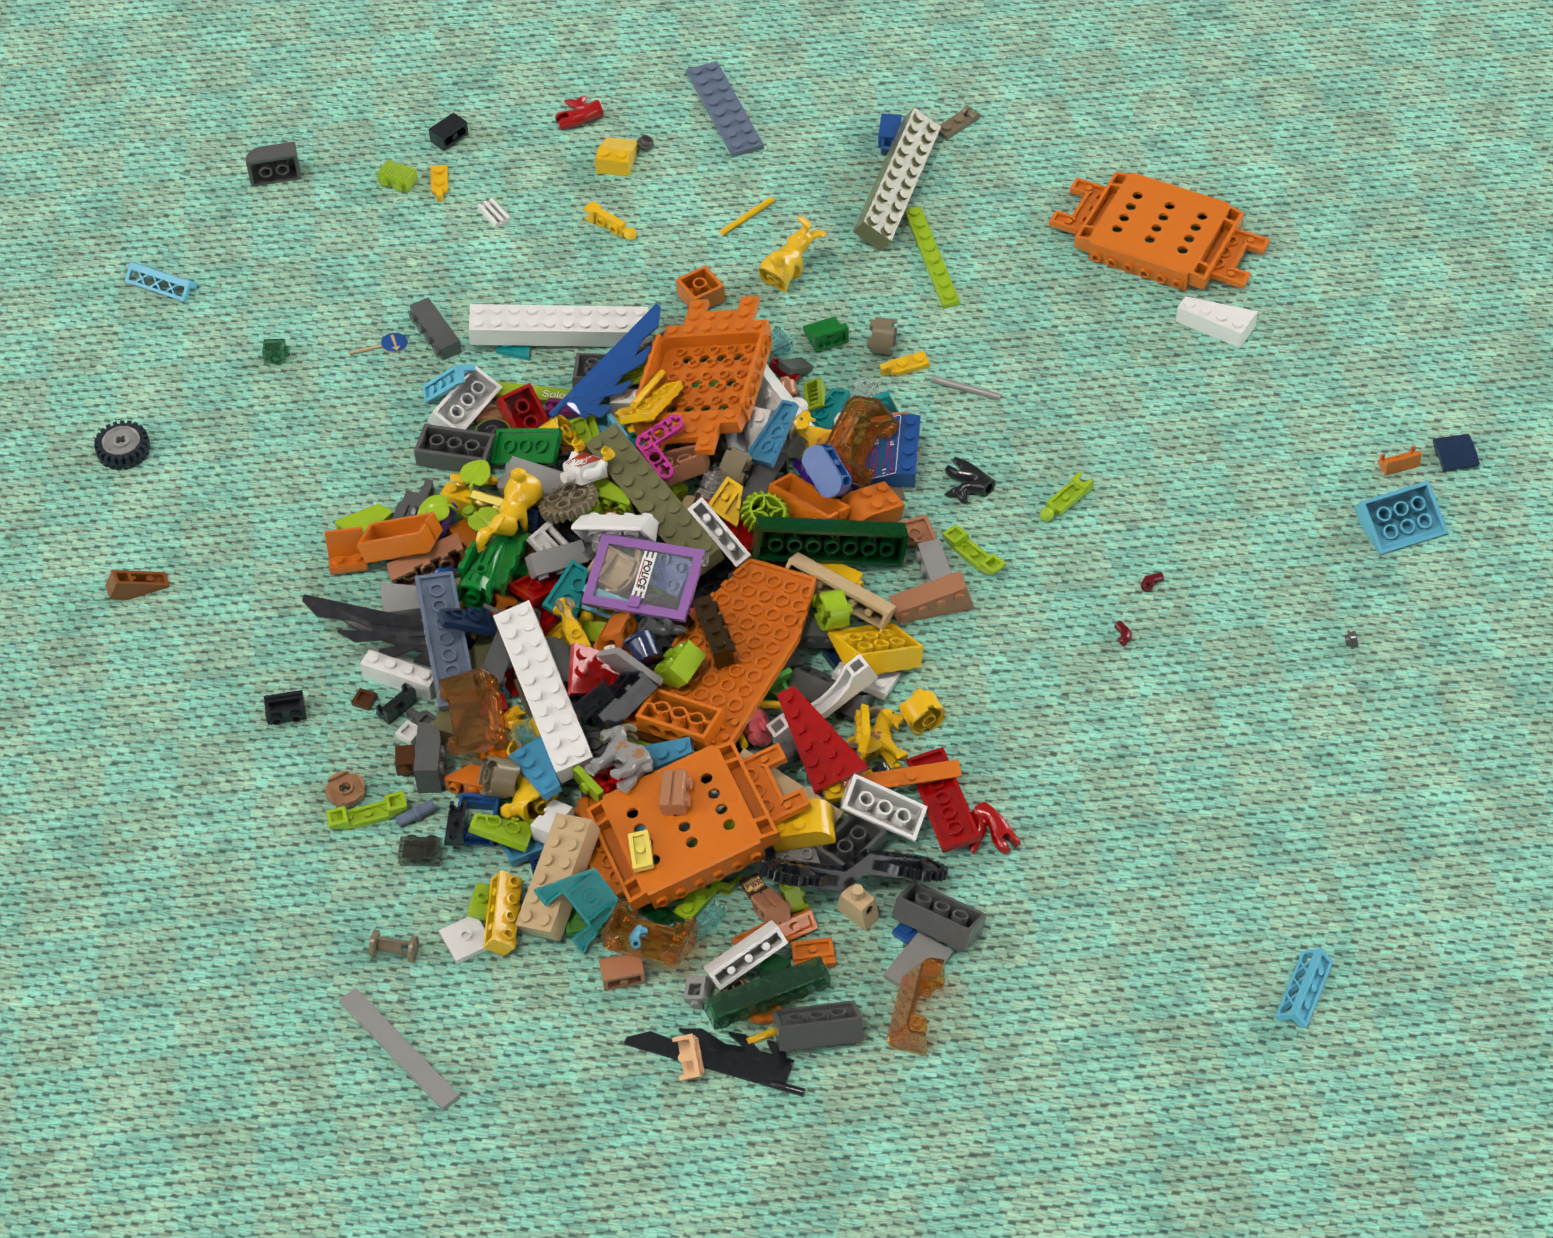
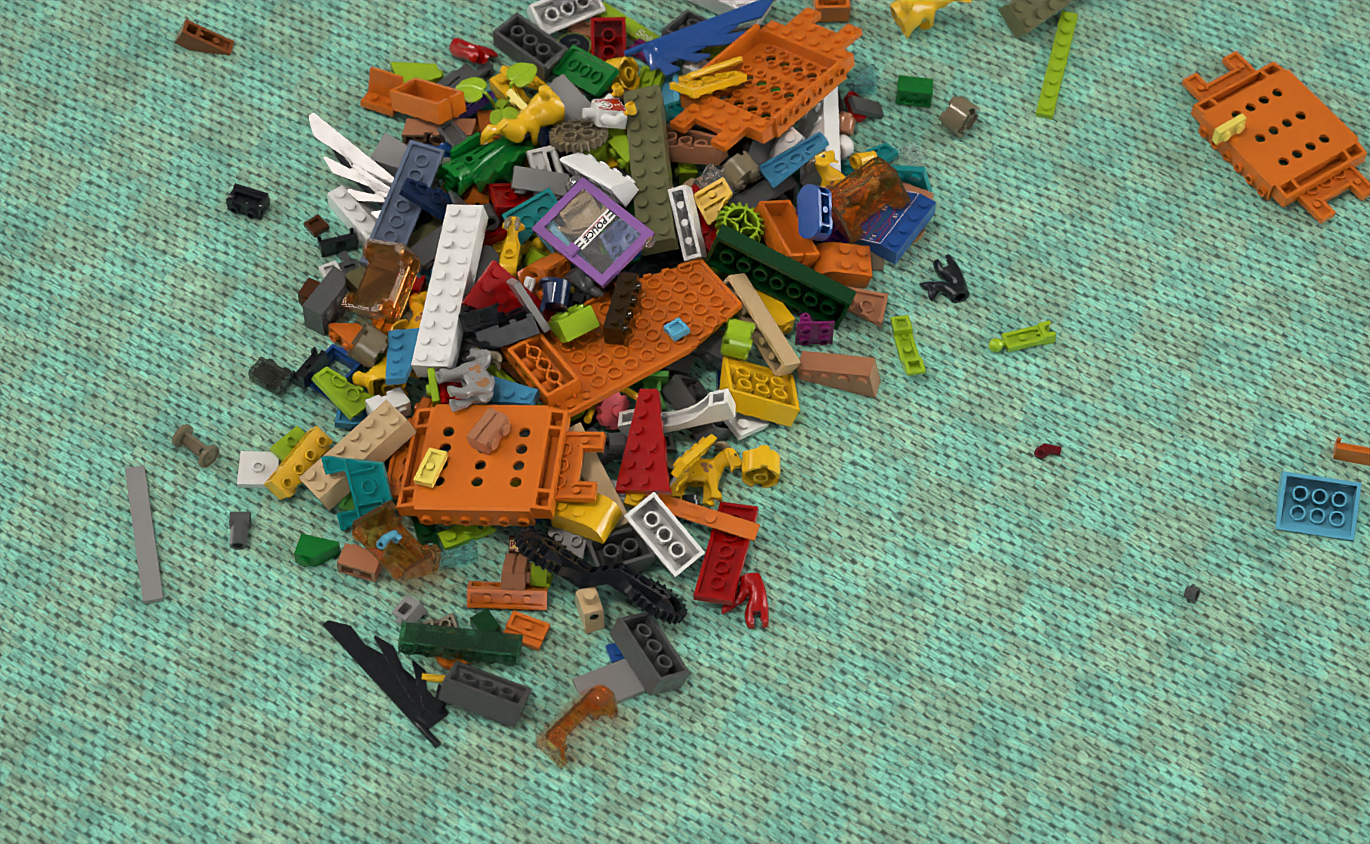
camera: 25 degrees right, 5 degrees up
(349, 798) = (252, 303): medium nougat plate -> none
(368, 814) = (250, 324): lime slope -> none
(401, 479) = (471, 52): none -> red piece
(416, 813) = (290, 342): sand blue pin -> none
(445, 556) = (451, 133): none -> dark grey tile
(487, 998) = (239, 527): none -> dark grey piece
(523, 732) = (411, 317): clear light blue slope -> none
(572, 981) = (315, 550): none -> green slope
(652, 447) = (678, 120): dark pink beam -> none
(690, 1057) = (362, 665): light nougat window -> none
(727, 888) = (496, 537): lime hand -> none
(745, 955) = (465, 601): white brick -> none
(775, 626) = (676, 329): none -> medium azure tile
(811, 394) = (868, 137): lime slope -> none
(824, 412) = (861, 158): none -> yellow cone
(886, 576) = (813, 332): none -> magenta hinge
(905, 364) = (965, 151): yellow hinge -> none
(932, 560) = (865, 337): light grey brick -> none
(967, 388) = (1008, 200): light grey bar -> none
(1120, 245) = (1229, 128): none -> light yellow plate
(1125, 632) = (991, 485): dark red arm -> none
(1217, 320) = (1275, 242): white wedge -> none

